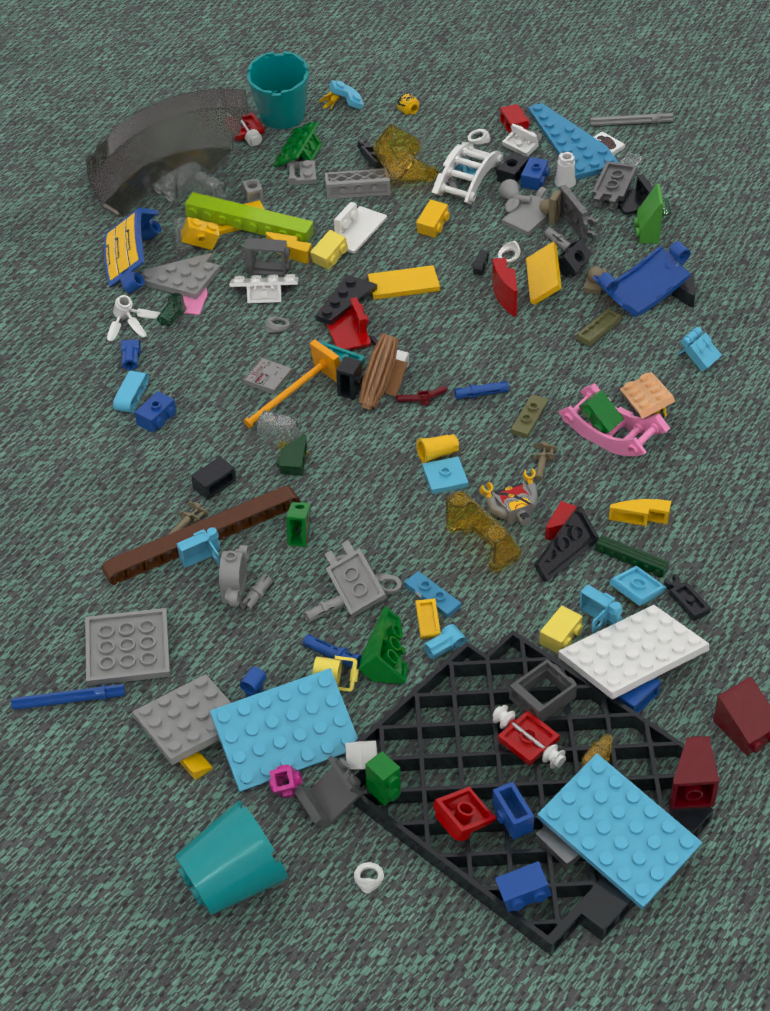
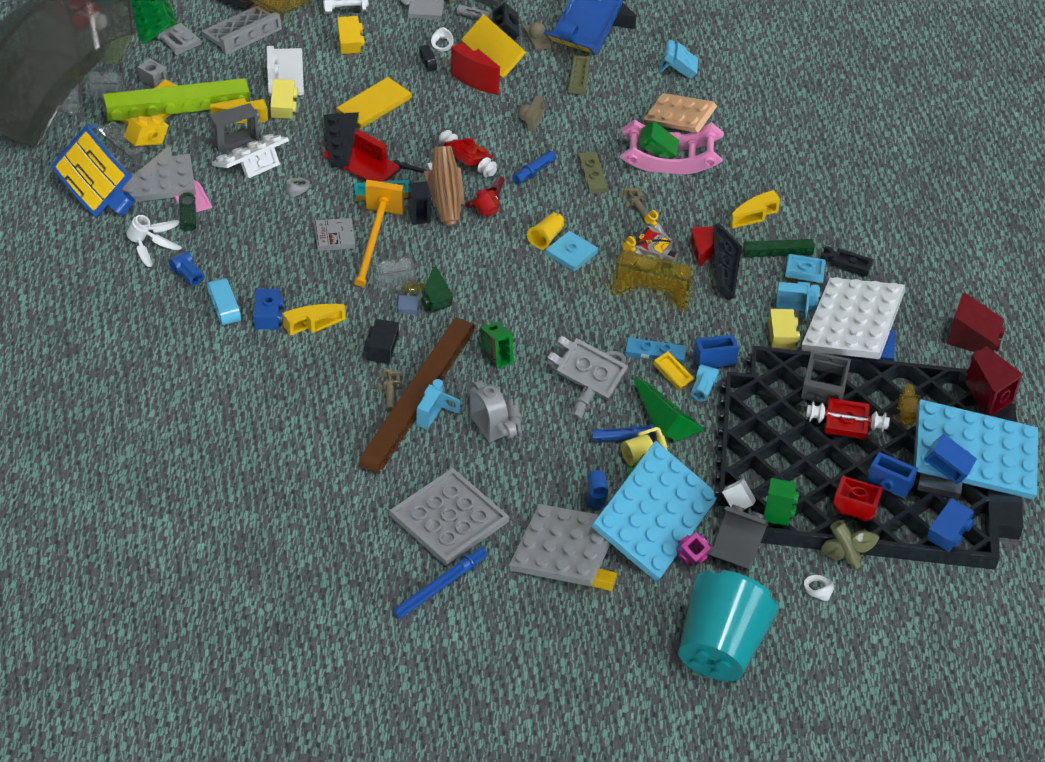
camera: 40 degrees left, 0 degrees up
(182, 434) = (313, 317): none -> yellow slope
(267, 458) = (407, 304): none -> sand blue tile
(408, 402) = (486, 203): none -> red head
(420, 853) = (848, 544): none -> olive plant
(435, 354) = (469, 153): none -> red plate
(476, 619) = (716, 351): none -> blue brick
(524, 344) = (532, 113): none -> dark tan tile
(567, 822) = (950, 459): none -> blue brick

